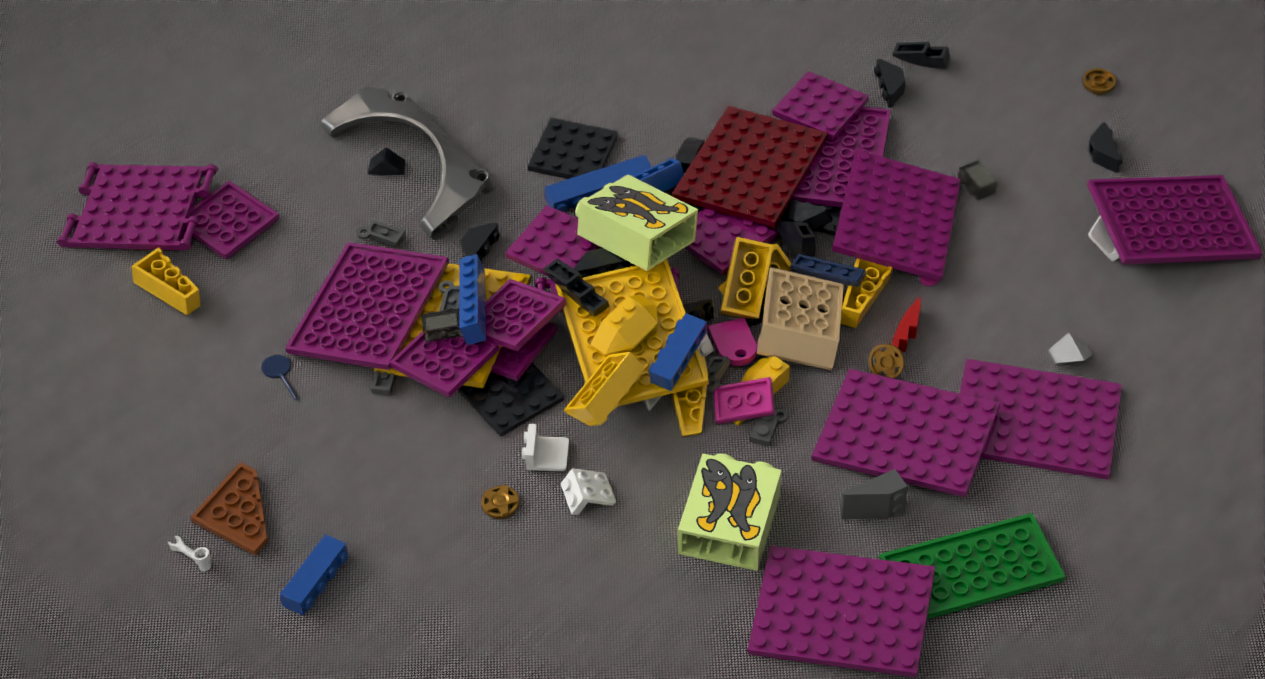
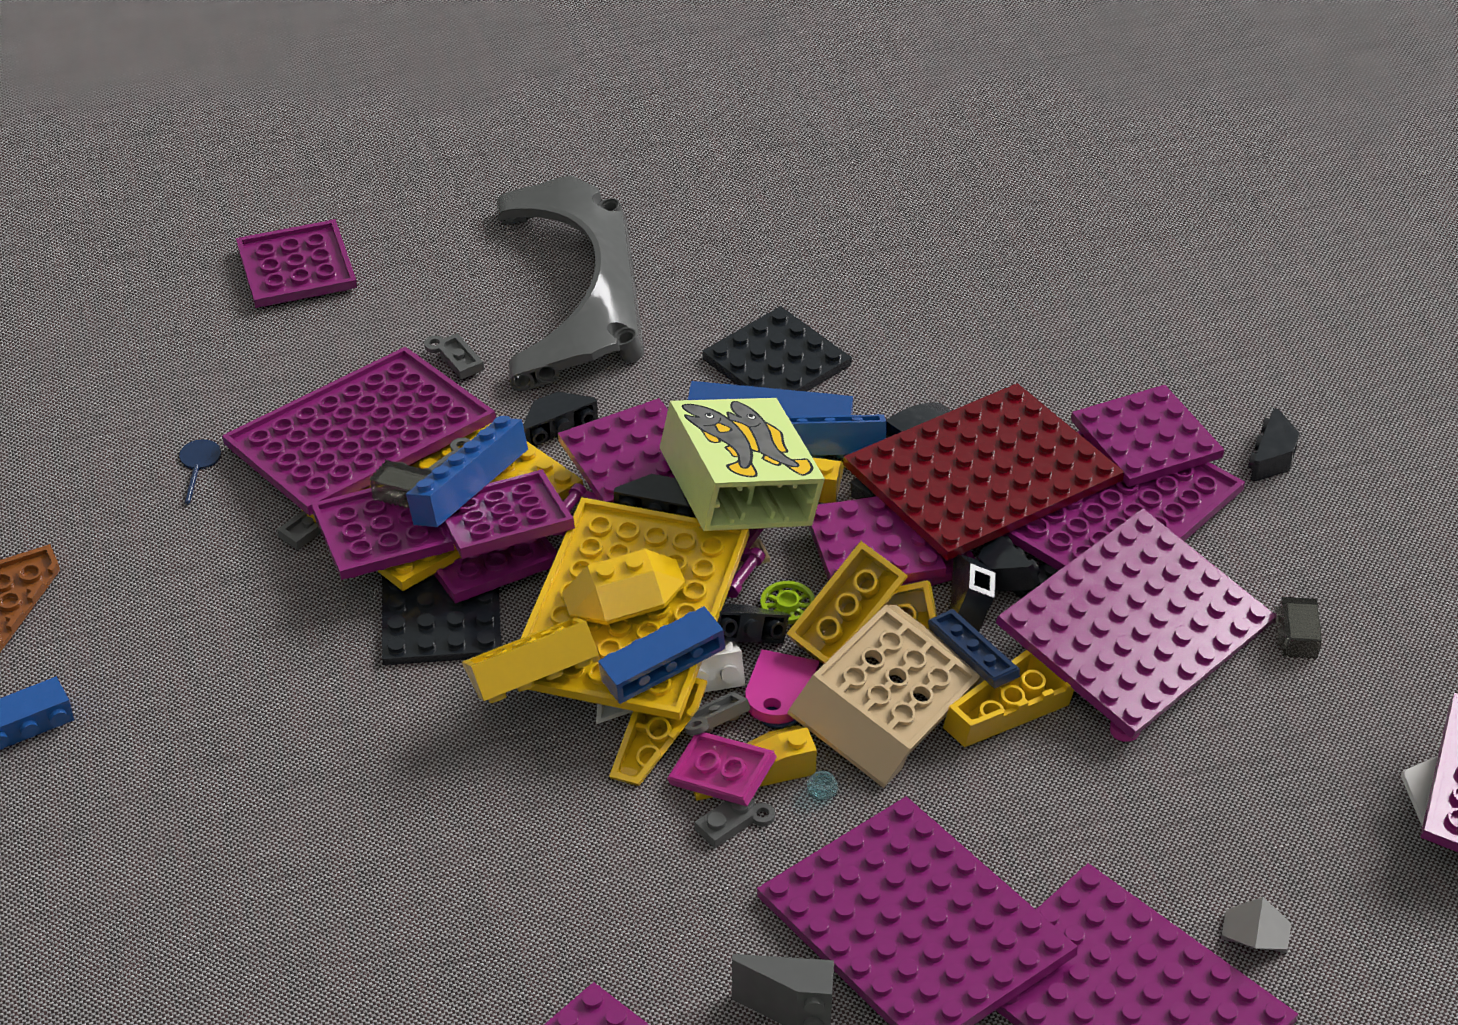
camera: 30 degrees right, 5 degrees down
(138, 207) = (210, 206): magenta plate -> none
(165, 281) = (159, 298): yellow wedge -> none
(386, 163) = (536, 278): black slope -> none
(500, 500) = (306, 742): pearl gold wheel -> none
(544, 452) = (410, 707): white bracket -> none
(575, 287) = (599, 512): black slope -> none
(586, 487) = (424, 782): white bracket -> none
(698, 292) = (787, 600): none -> lime wheel
(729, 511) = (574, 905): yellowish green brick -> none
(800, 384) = (822, 785): none -> clear light blue plate
(886, 360) = (964, 811): pearl gold wheel -> none
(907, 327) = (1032, 779): red slope -> none
(922, 54) = (1351, 431): black slope -> none

